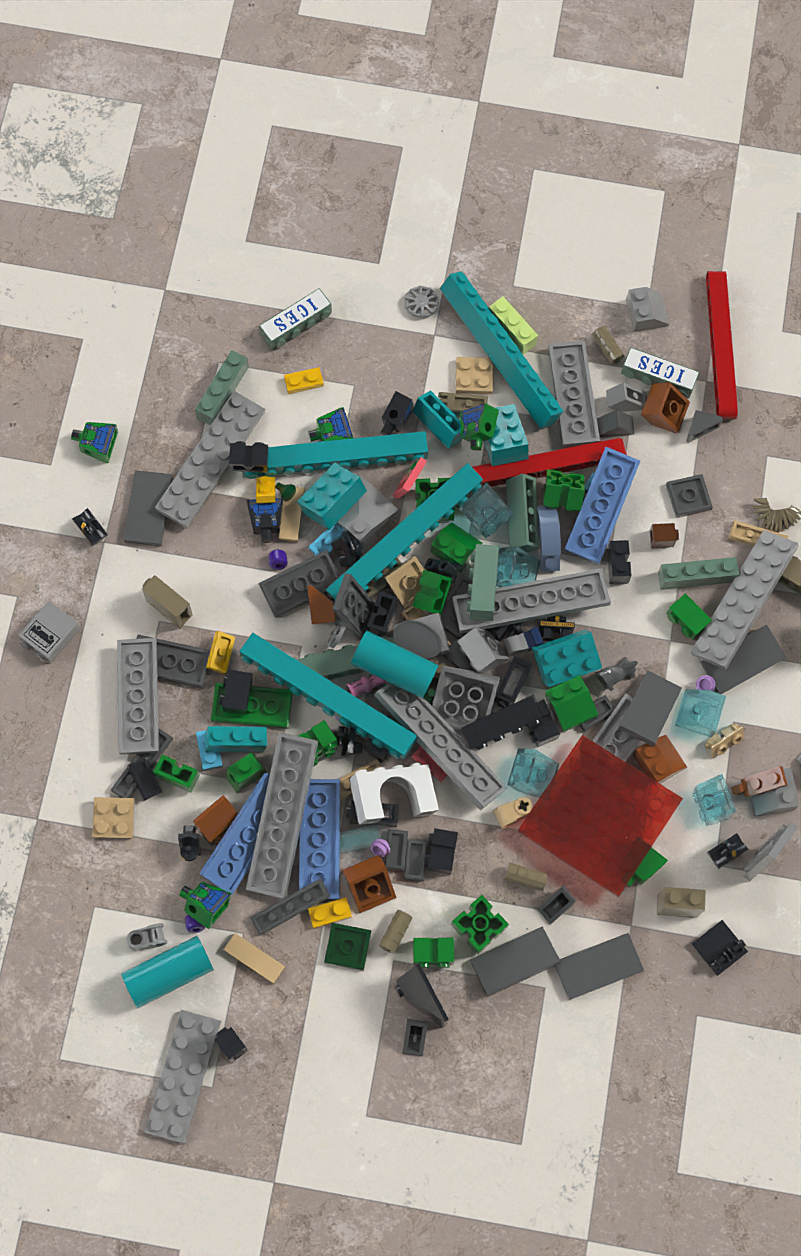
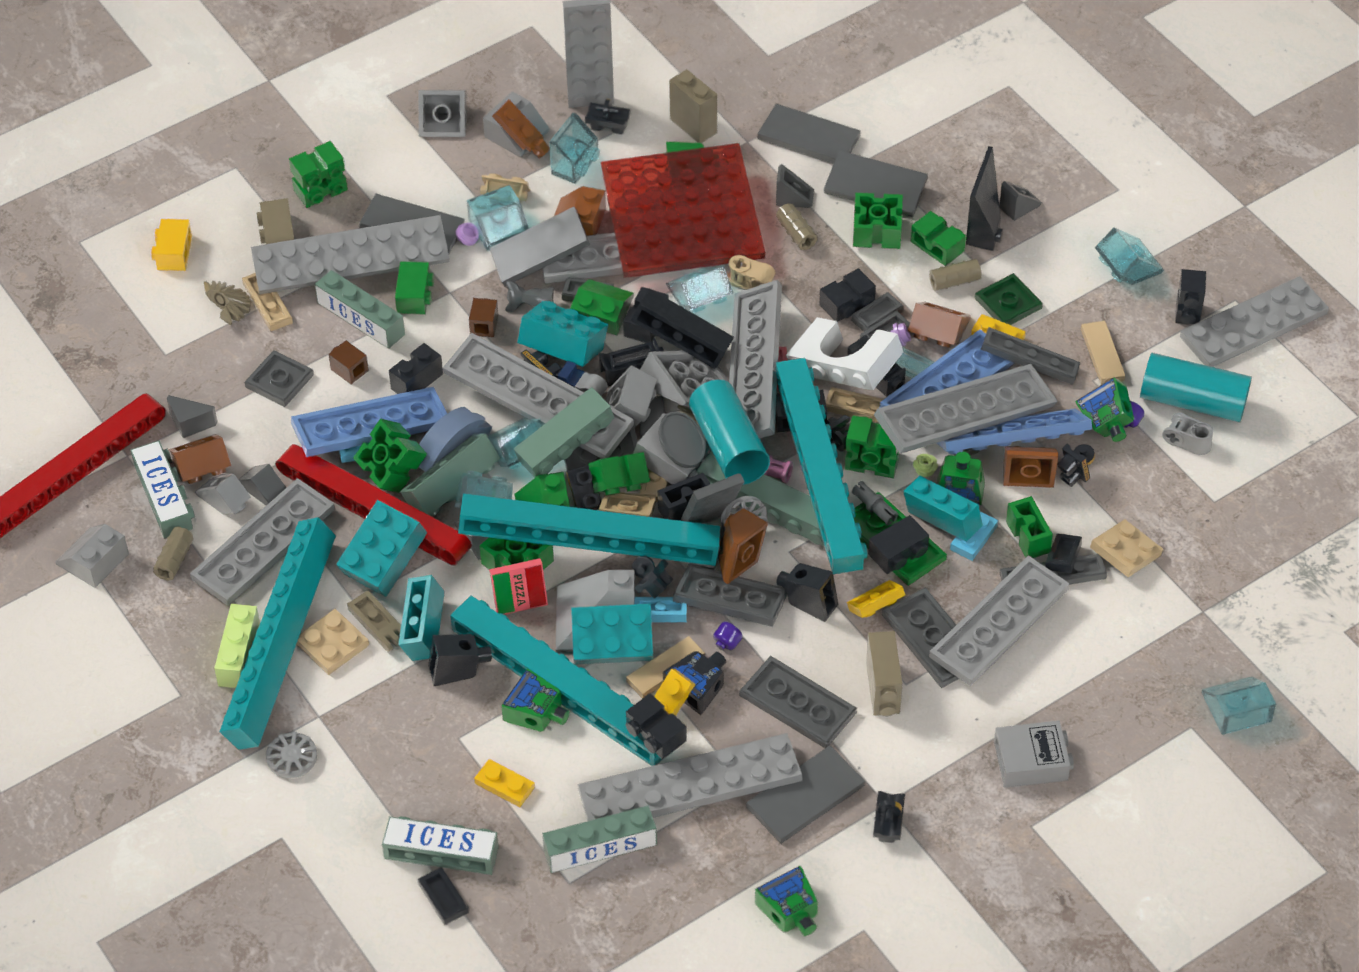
camera: 130 degrees left, 20 degrees down
(204, 557) = (798, 702): none -> dark grey tile
(259, 620) = (810, 590): none -> black torso
(269, 301) = (443, 895): none -> black tile
(277, 709) = (875, 503): none -> dark grey pin
(286, 491) = (650, 681): dark green rock -> none
(302, 1051) = (1127, 257): none -> clear light blue slope
(478, 424) = (401, 558): green torso -> none
(627, 634) = (483, 317): none -> reddish brown brick
(720, 947) = (704, 69): black hinge -> none

